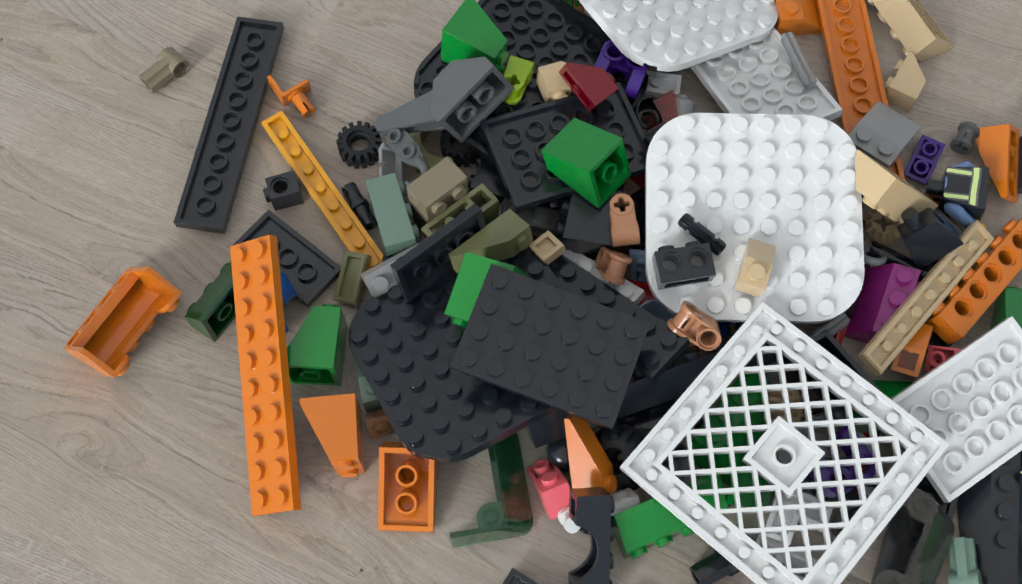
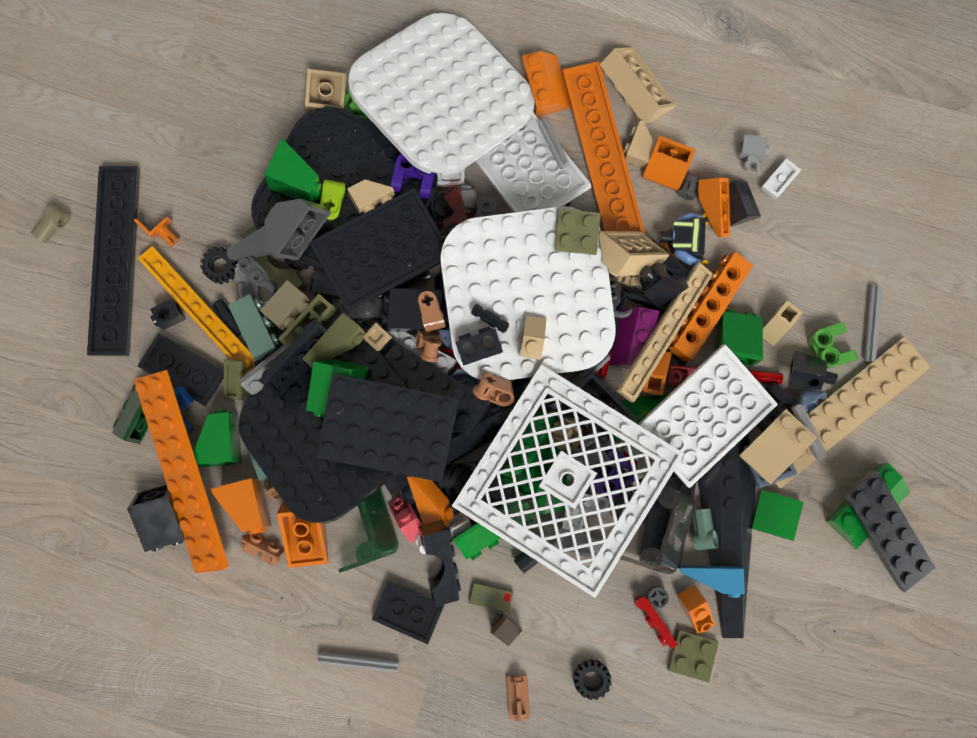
camera: 10 degrees left, 15 degrees up
(121, 319) = (62, 444): orange windscreen -> none
(217, 435) = (155, 519): none -> black slope
(357, 501) = (270, 551): none -> nougat hinge
(588, 160) = (396, 265): green slope -> none
(589, 83) = (390, 199): dark red slope -> none
(827, 145) = (577, 232): none -> olive plate
(883, 134) = (623, 200): light grey slope -> none
(924, 159) = (658, 211): dark purple slope -> none
(942, 105) = (669, 163): none -> orange slope

